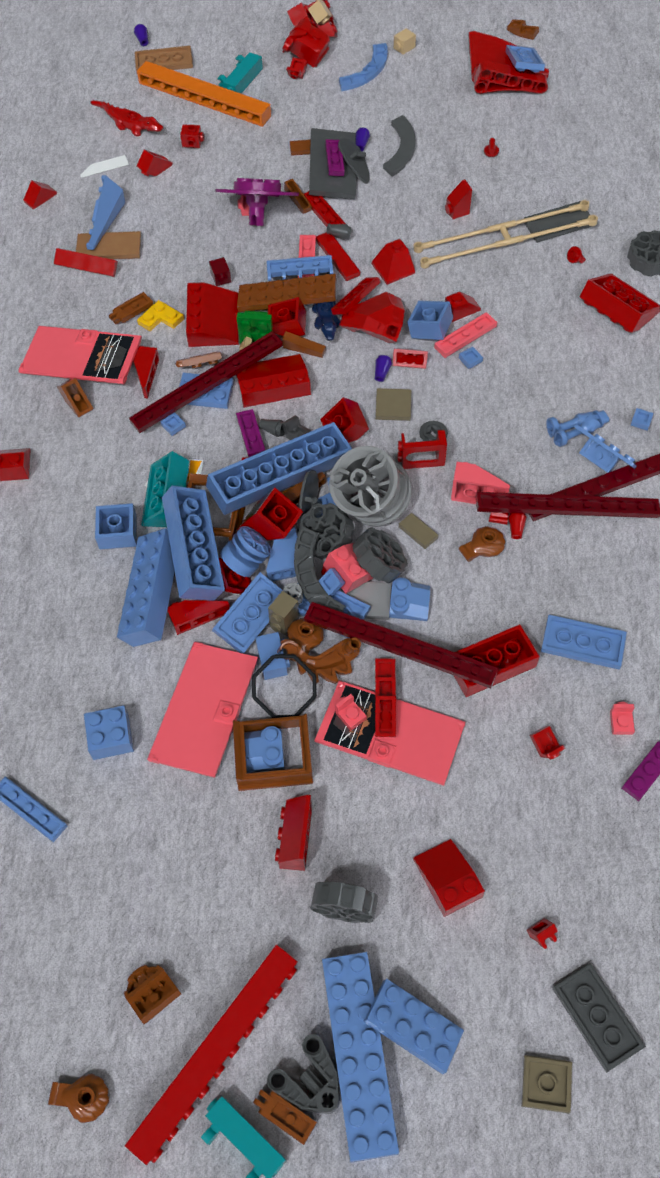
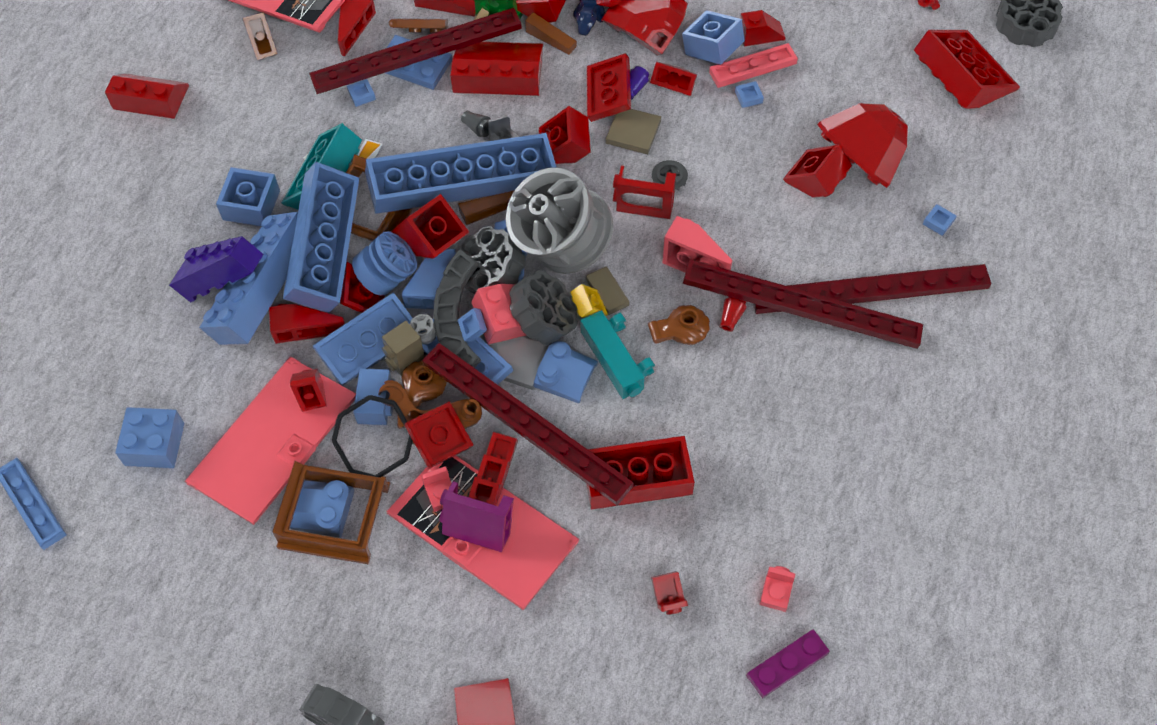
camera: 15 degrees right, 0 degrees up
(114, 586) = (215, 266): none -> dark purple wedge
(222, 662) = (308, 389): none -> red slope
(250, 432) = (448, 121): magenta plate -> none
(294, 833) = (321, 618): red slope -> none
(308, 493) = (486, 210): dark grey shield -> none
(334, 671) = (438, 435): none -> red tile
(364, 376) = (608, 87): none -> red plate
(389, 727) = (476, 520): none -> magenta panel
(409, 543) = (587, 301): none -> yellow piece
(441, 578) = (613, 355): none -> teal brick
(496, 517) = (713, 299): red plate -> none
(542, 402) = (819, 171): none -> red slope
(573, 370) = (869, 137): none -> red brick
(584, 642) = (763, 479): medium blue plate -> none
(592, 420) = (864, 207): medium blue piece -> none
(601, 454) = (869, 250): medium blue bracket -> none

